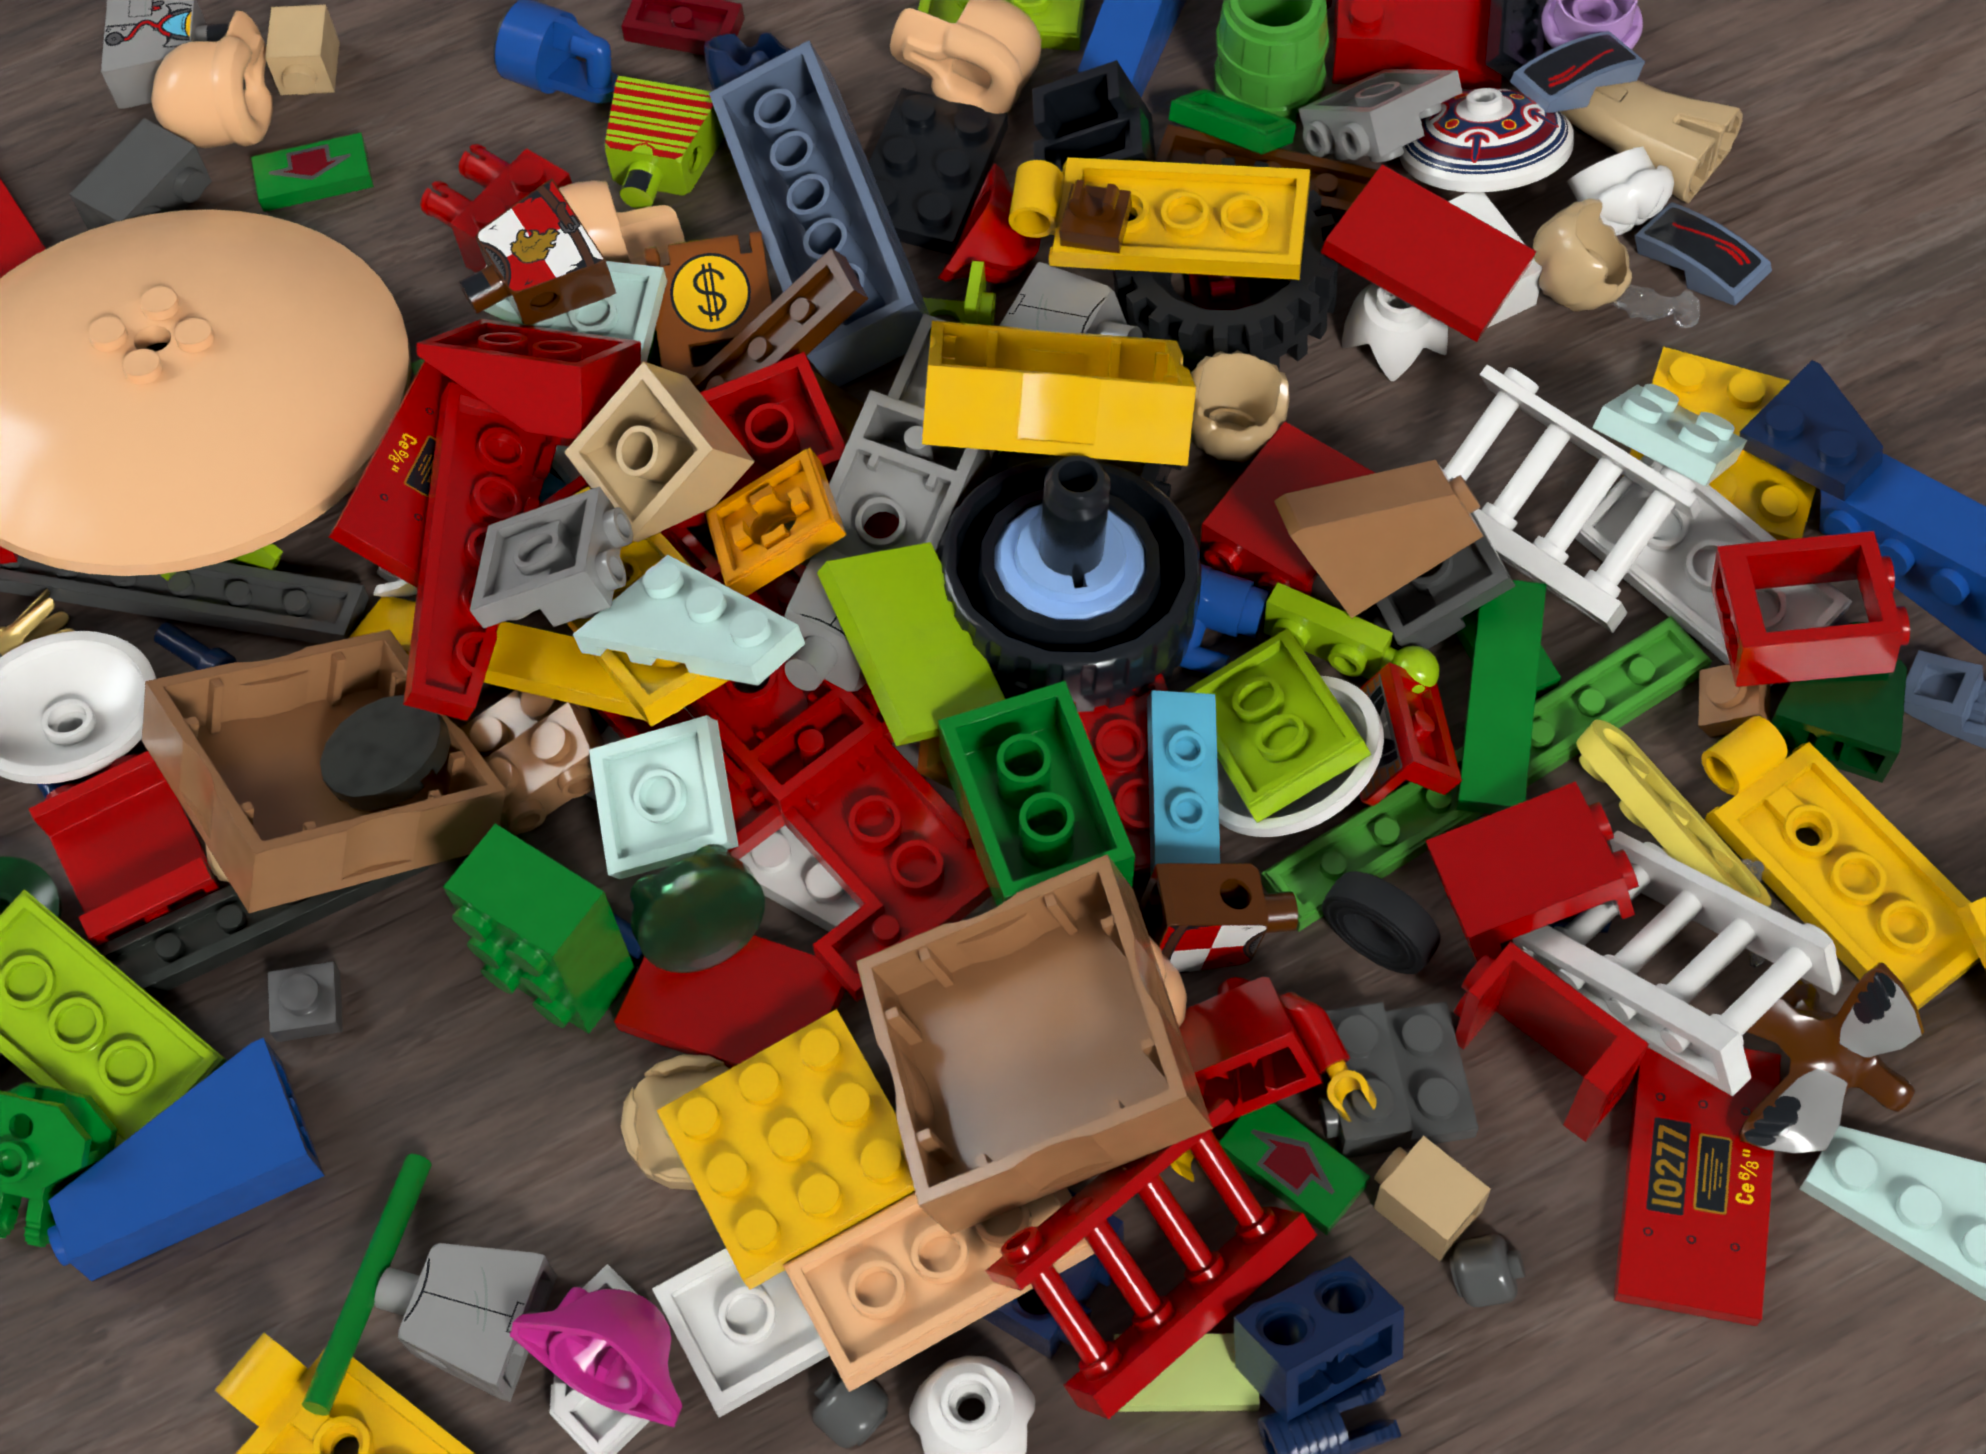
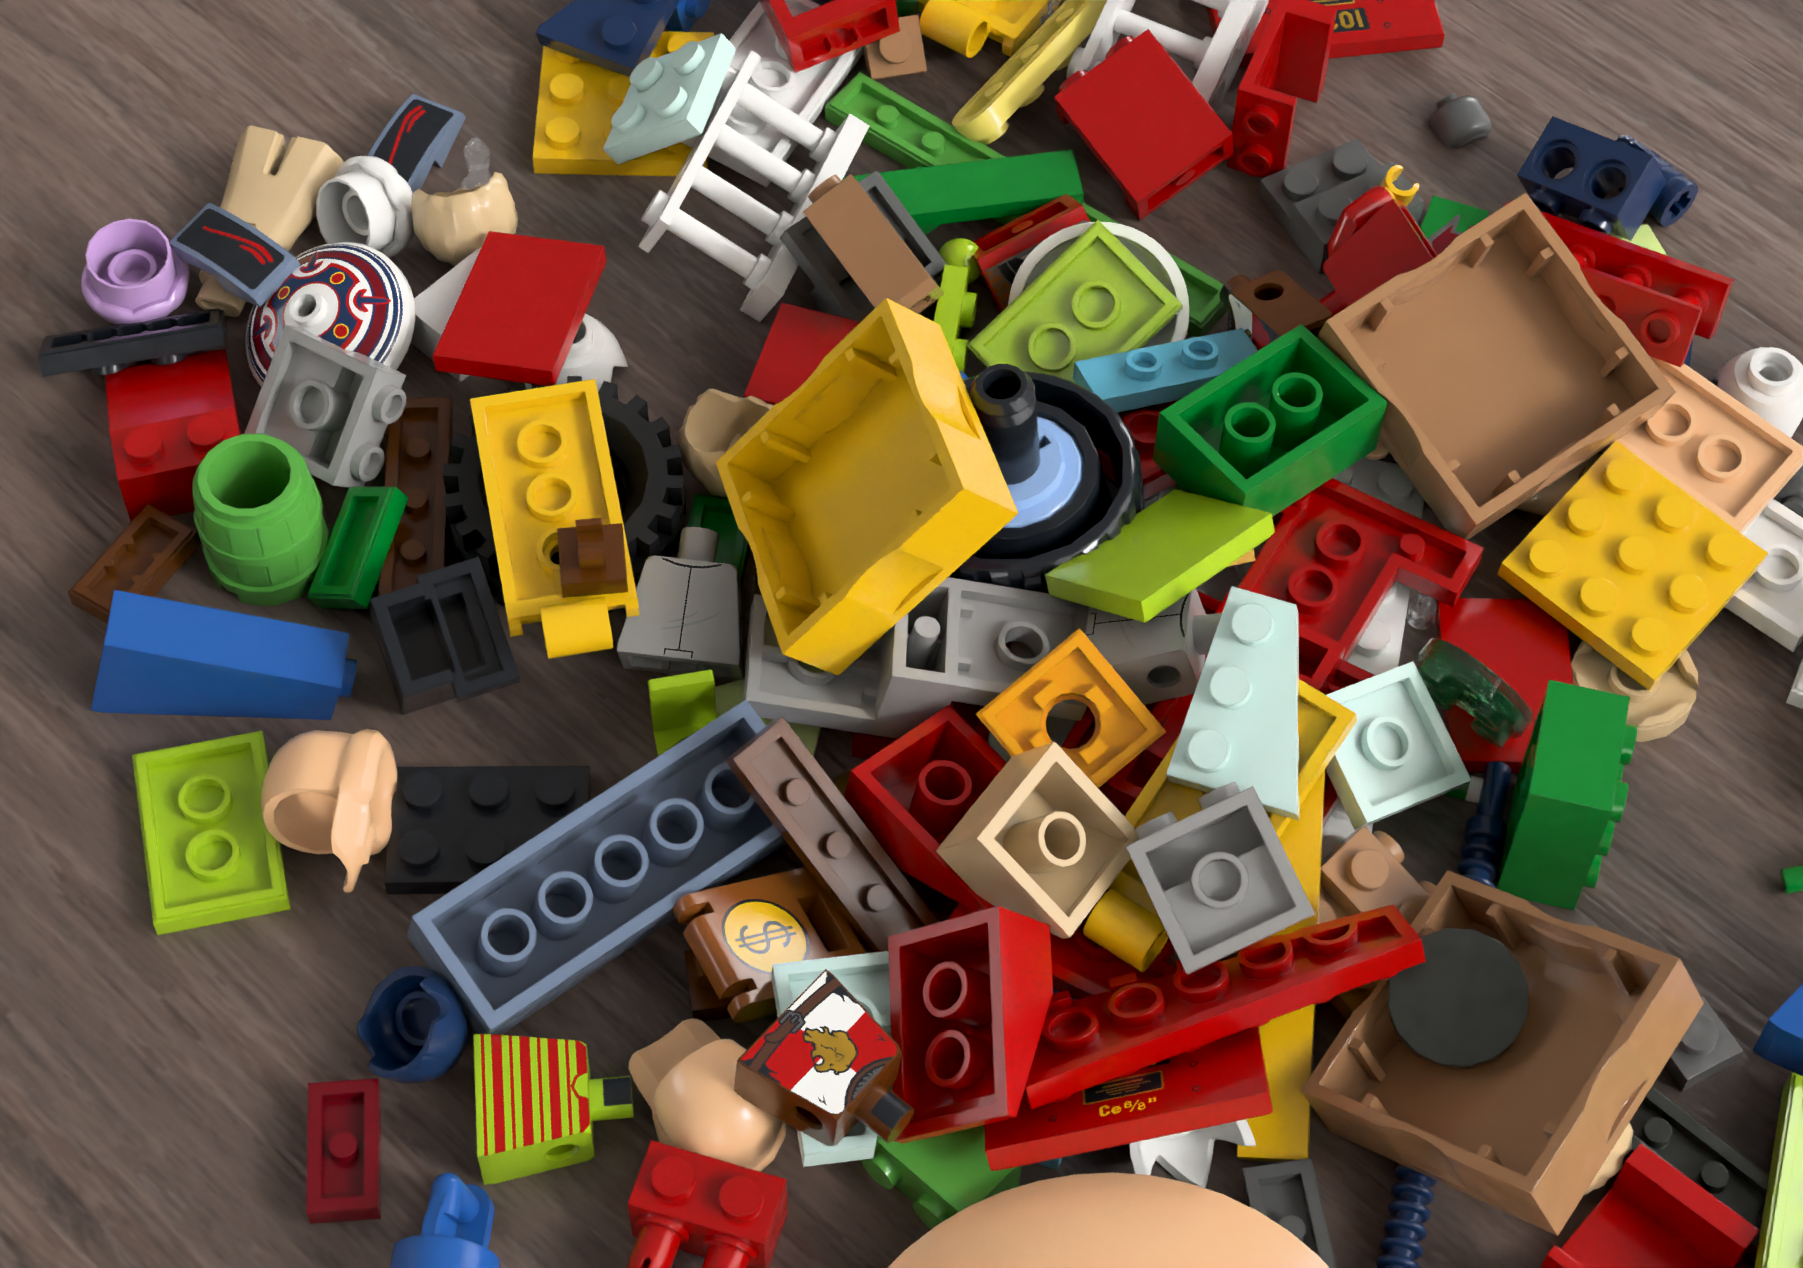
camera: 115 degrees left, 5 degrees down
(990, 237) = (577, 725): red hat -> none
(1381, 922) = (1225, 217): black tyre -> none
(1429, 1196) = (1435, 148): tan brick -> none

